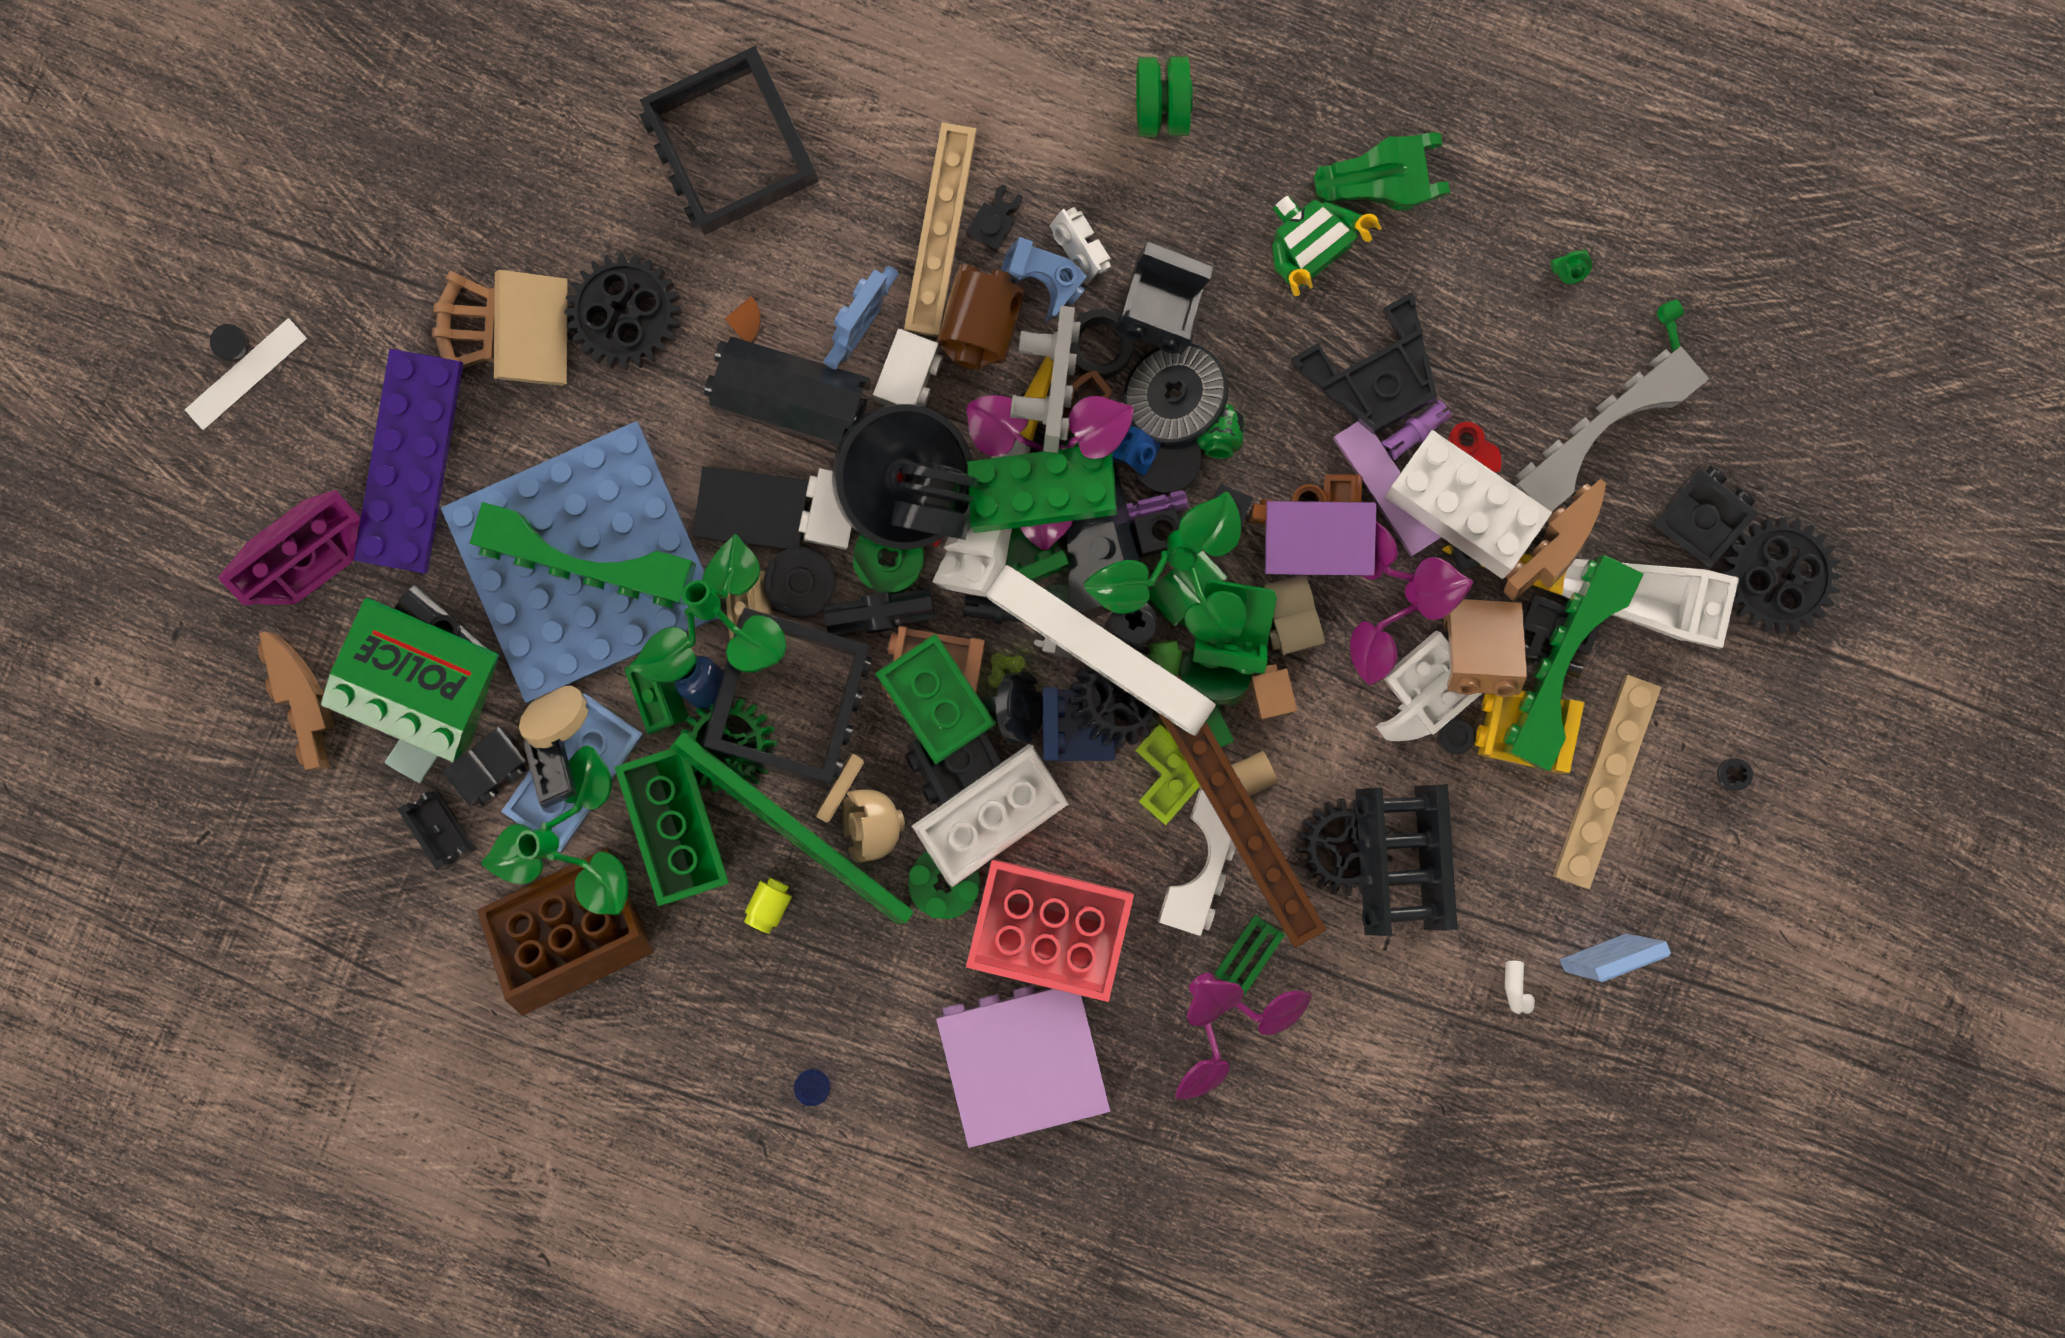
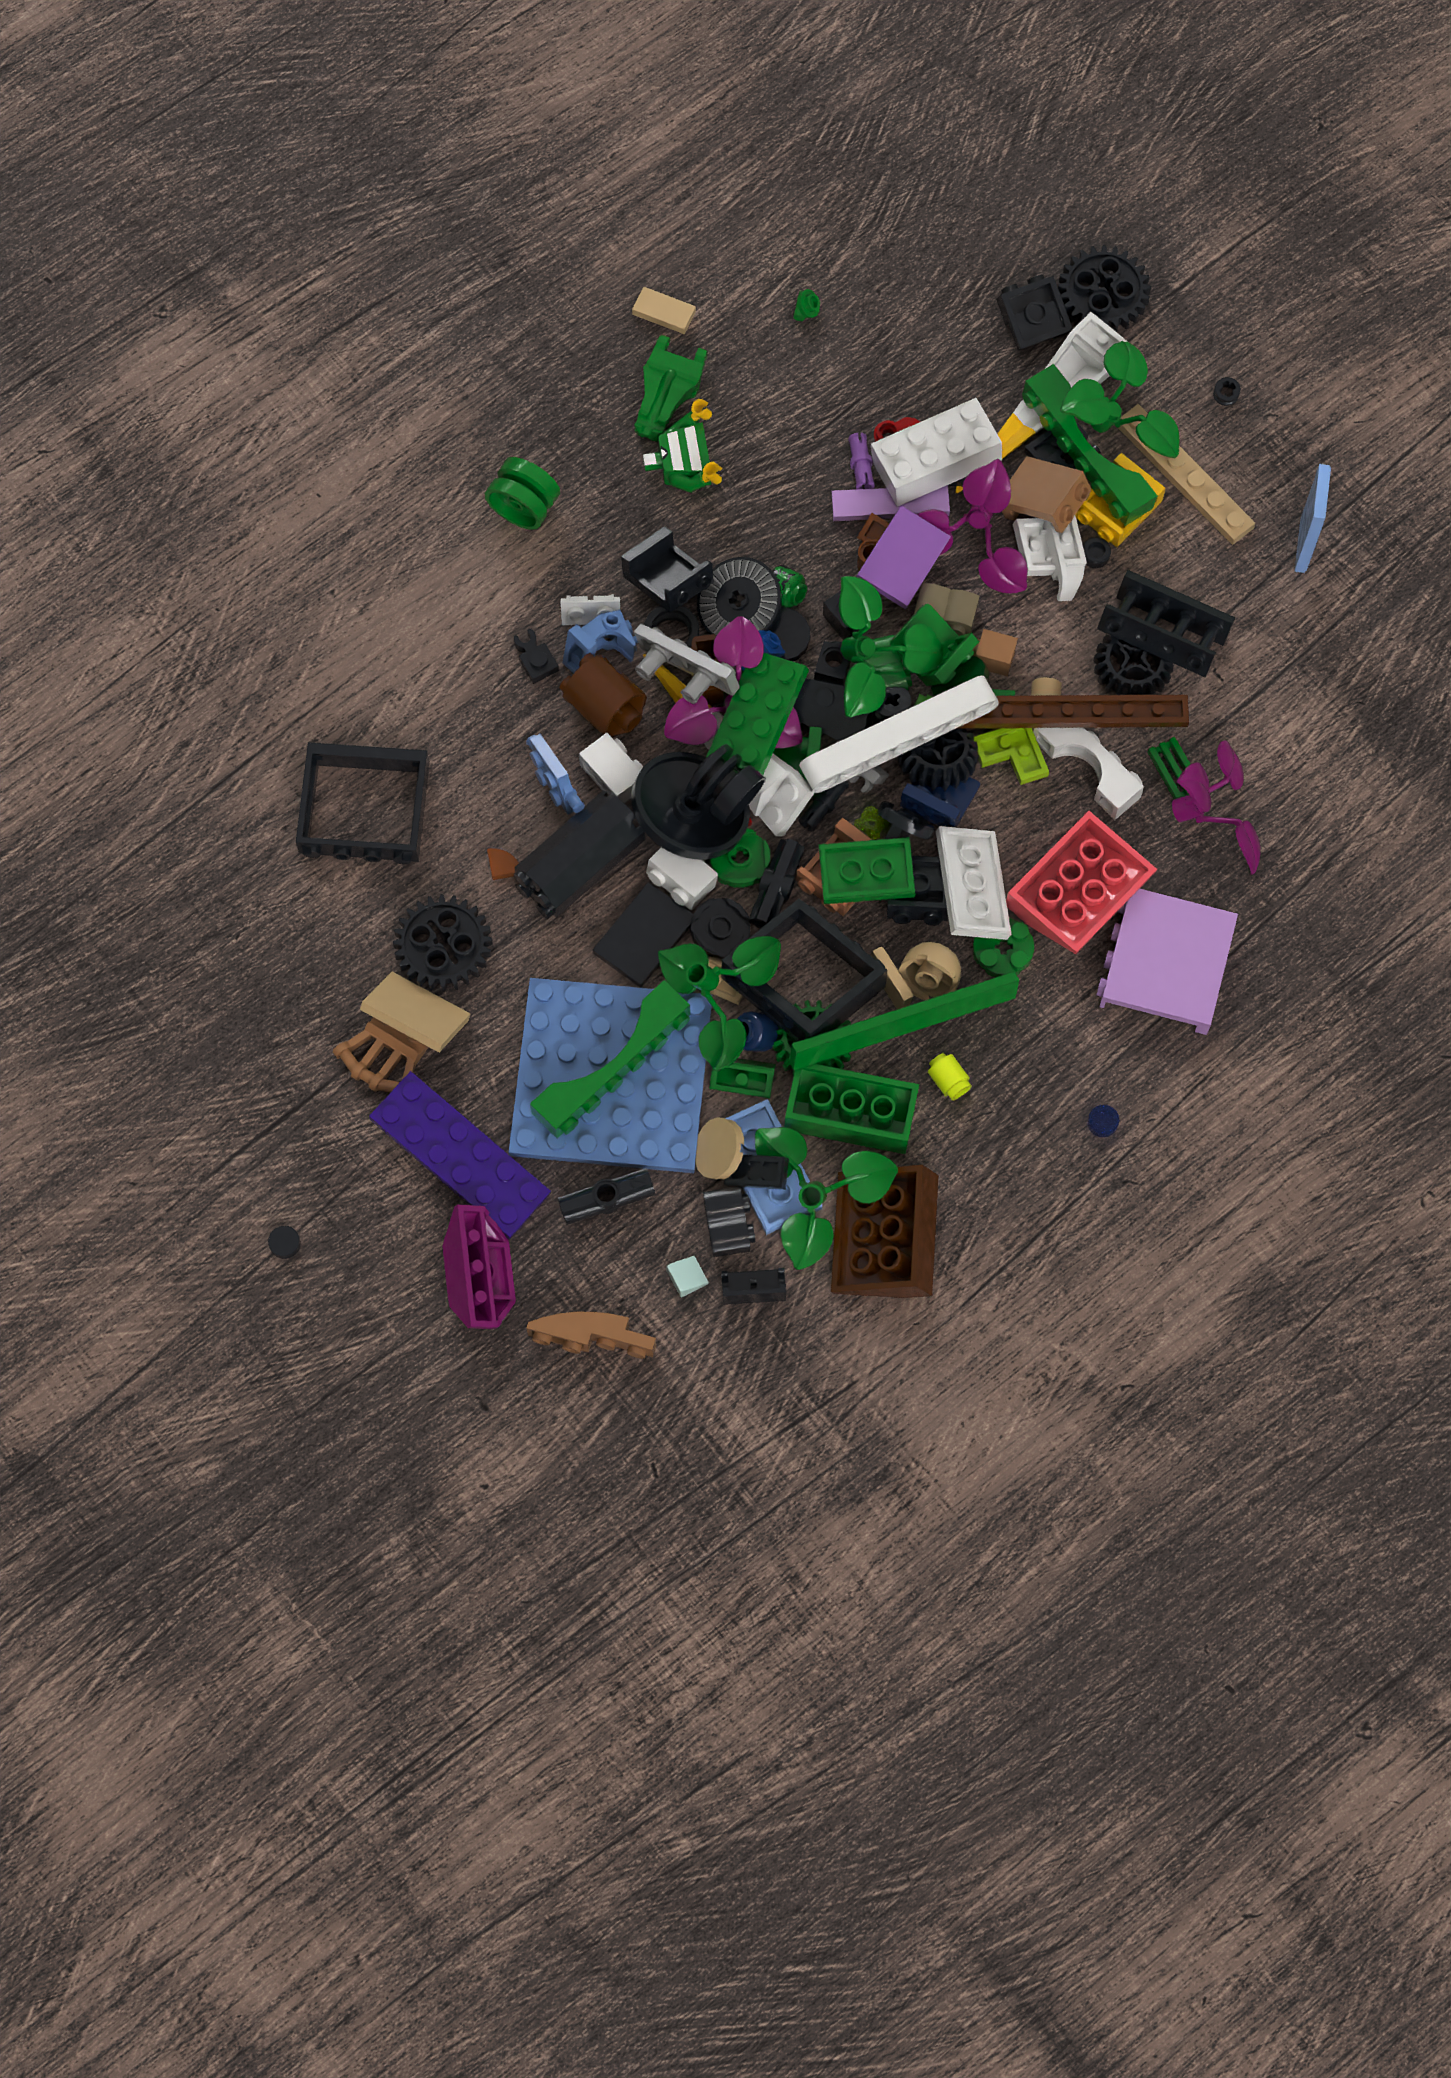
camera: 60 degrees left, 15 degrees down
(245, 374) = (314, 1246): white sticker -> none
(410, 680) = (629, 1233): green slope -> none
(940, 229) = (519, 694): tan plate -> none
(1158, 504) = (812, 653): medium lavender axle -> none
(1384, 384) = (817, 465): black wing -> none
(1477, 119) = (664, 310): none -> tan tile
(1514, 988) = (1308, 610): white arm -> none
(1563, 542) = (999, 408): medium nougat slope -> none
(1609, 645) = (1087, 402): none -> green plant
(1665, 386) = (926, 291): light grey arch -> none
(1667, 314) = (877, 265): green hand -> none

